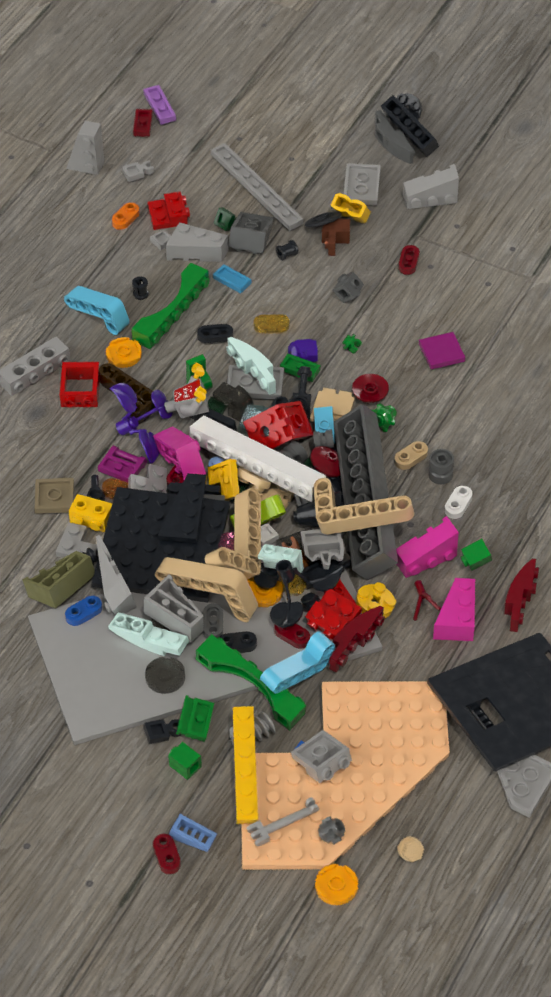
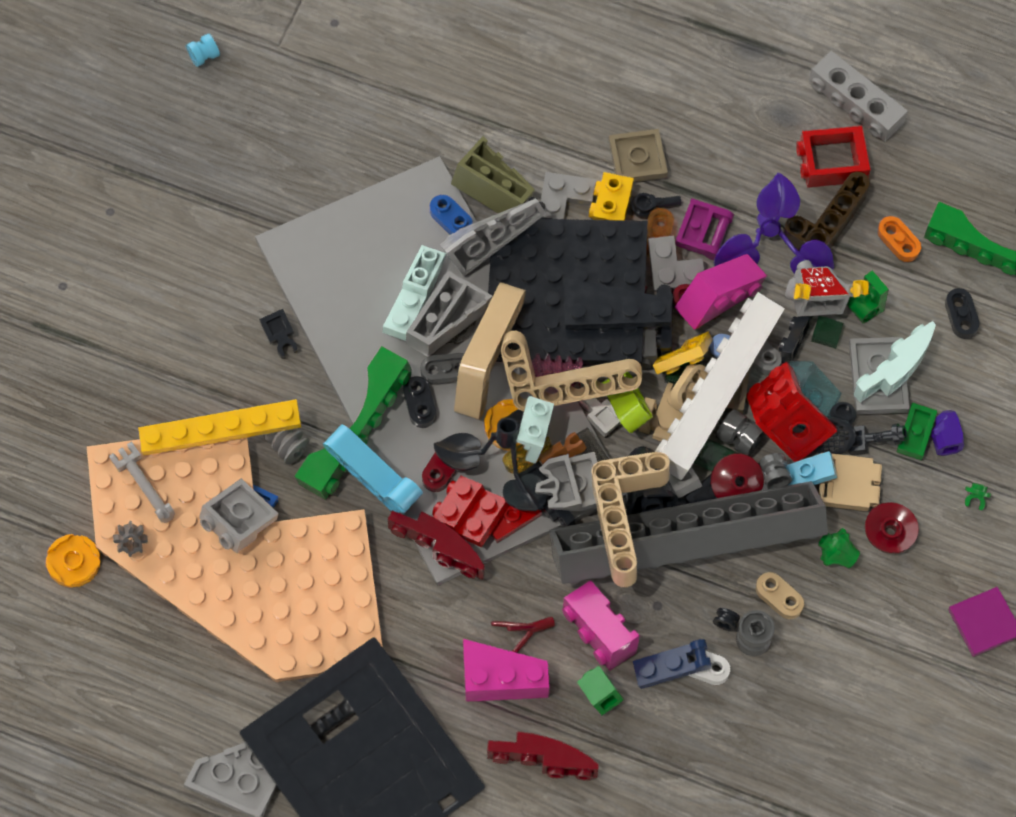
camera: 80 degrees right, 15 degrees up
(99, 305) = (975, 157): medium azure beam -> none
(123, 352) = (909, 202): light orange tile -> none
(151, 358) = (900, 240): none -> orange plate
(165, 675) = (360, 324): clear smoke tile -> none
(165, 852) = (105, 364): dark red plate -> none
(184, 760) = (235, 363): green brick -> none
(189, 824) = (145, 382): medium blue slope -> none
(195, 718) = (298, 367): green plate -> none
(235, 398) = (833, 346): clear smoke brick -> none
(271, 323) = (995, 386): clear yellow plate -> none
(308, 600) = (492, 481): black plate -> none
(375, 592) = (525, 566): yellow plate -> none
(410, 849) = (121, 641): tan piece -> none
(427, 483) = (726, 619): none -> black bush
(460, 512) = (671, 664): none -> dark blue plate

